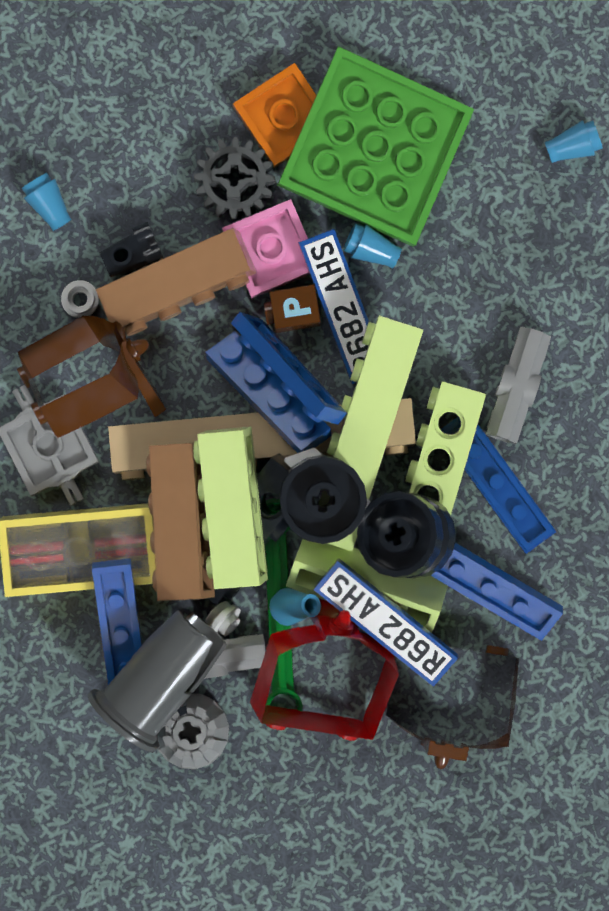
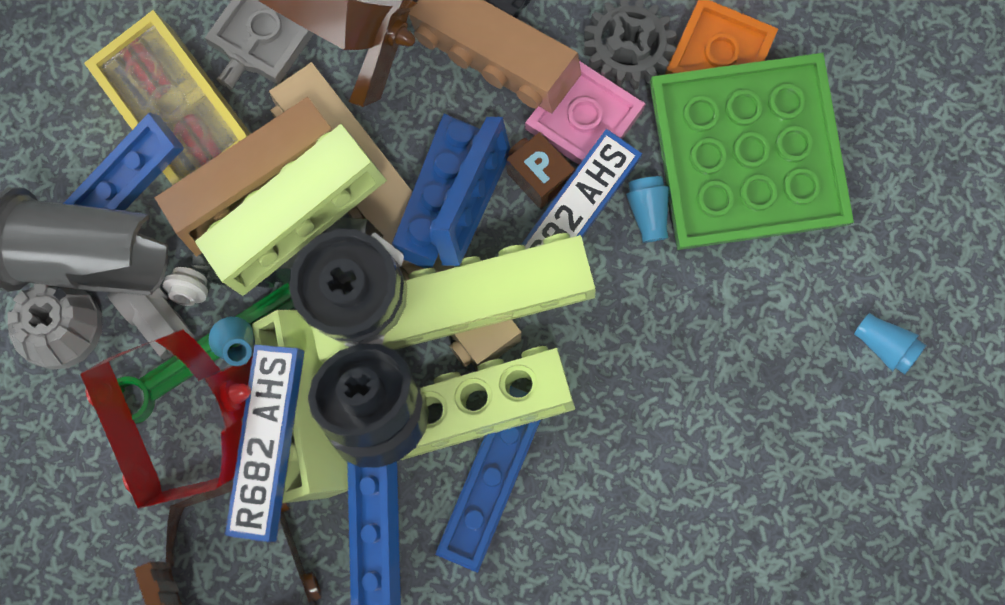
camera: 60 degrees right, 10 degrees down
(518, 385) = (606, 436): light grey piece -> none

